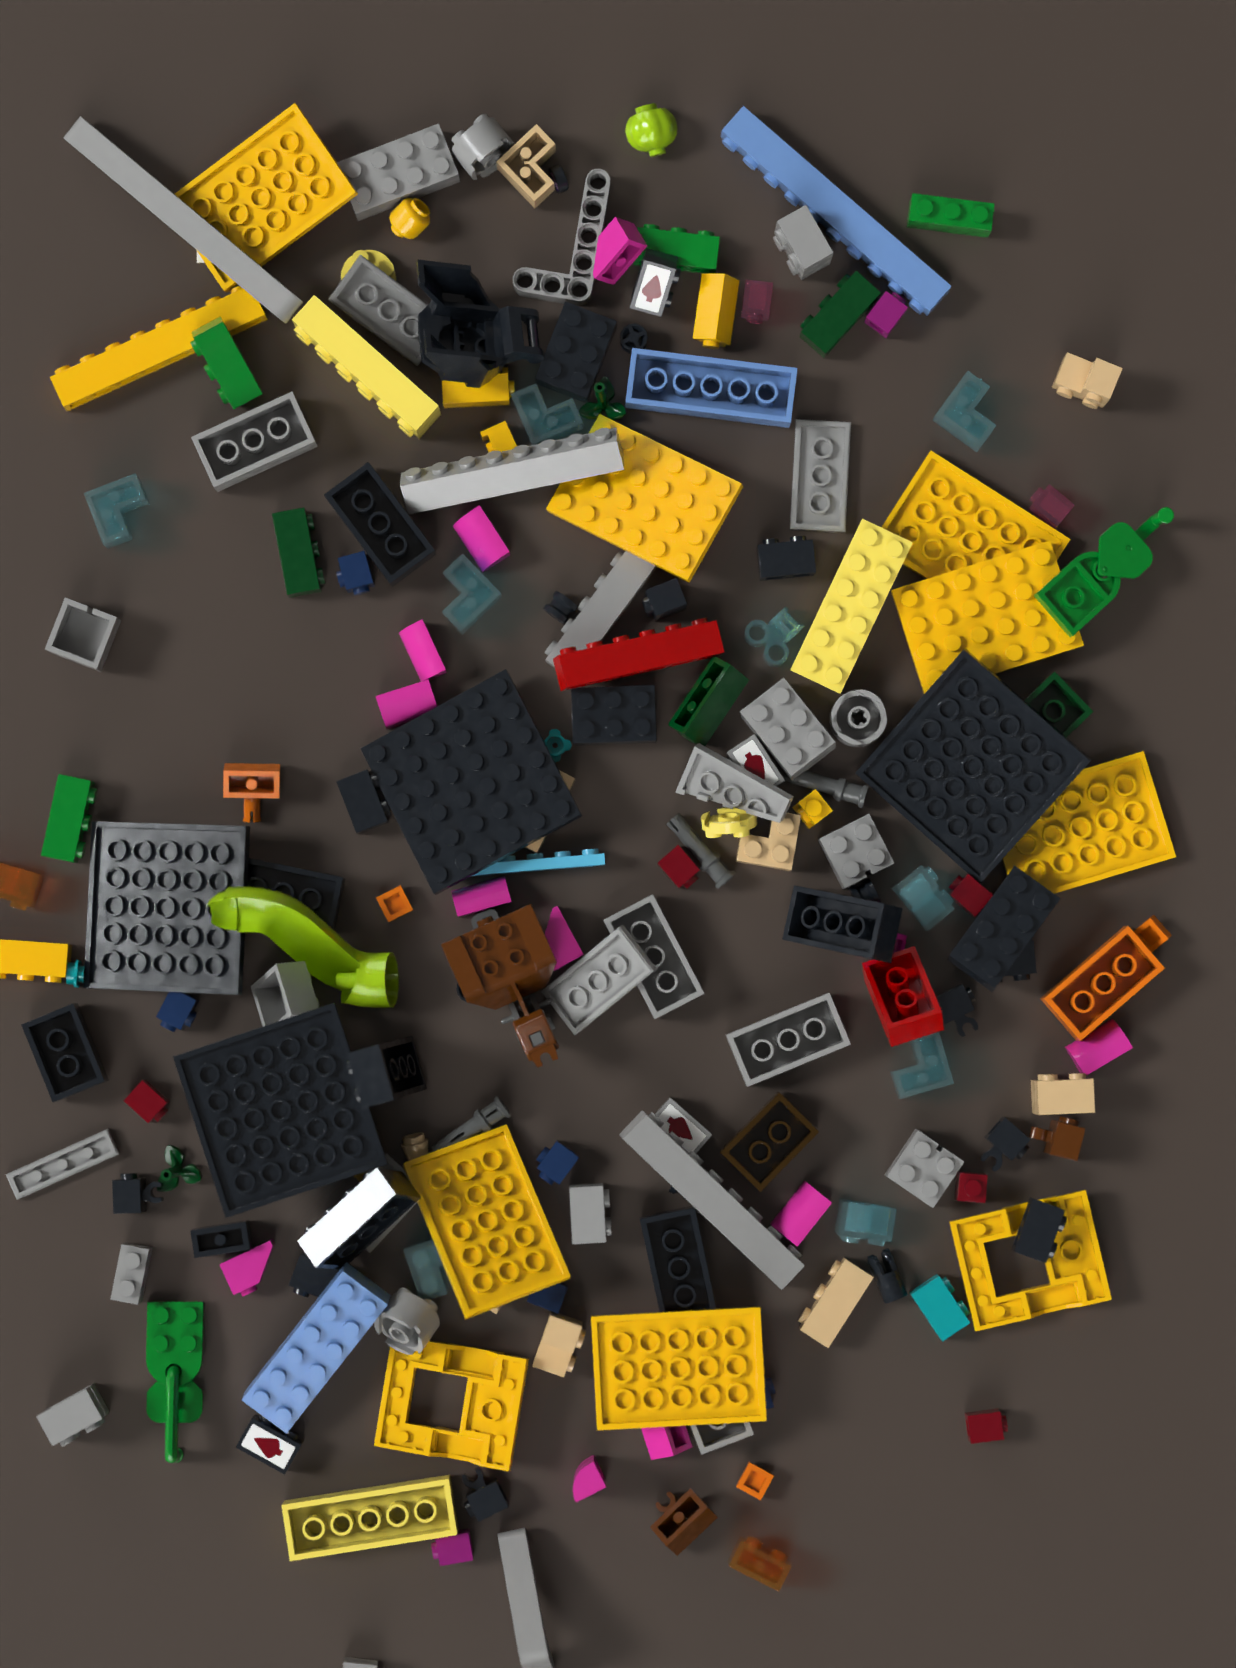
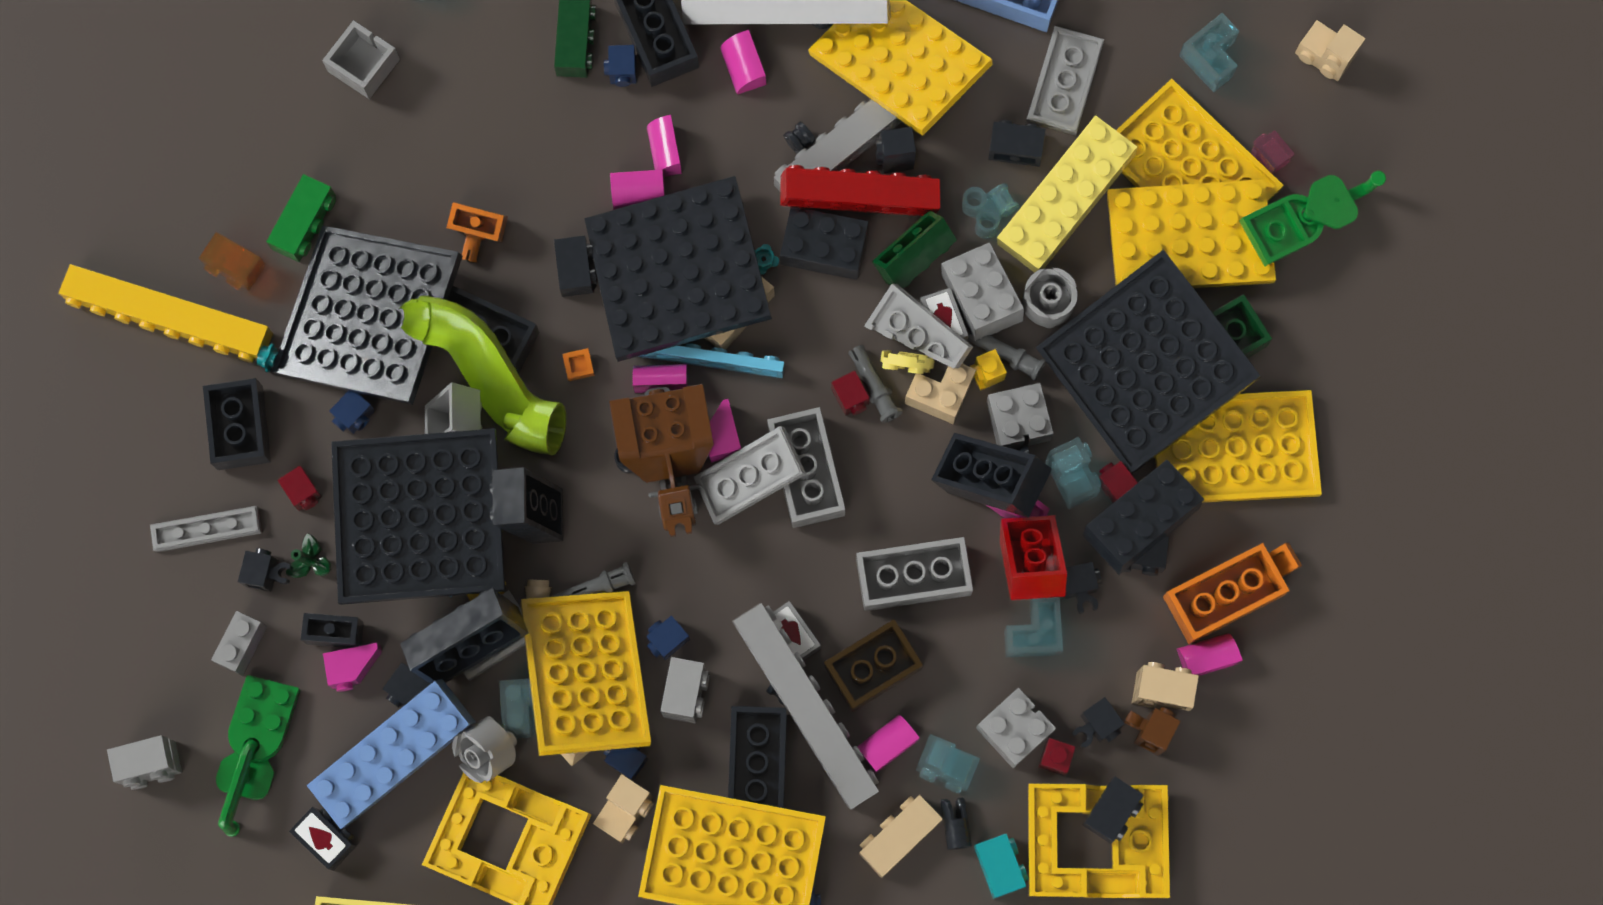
camera: 20 degrees right, 10 degrees down
(475, 596) = (724, 105): clear light blue brick -> none

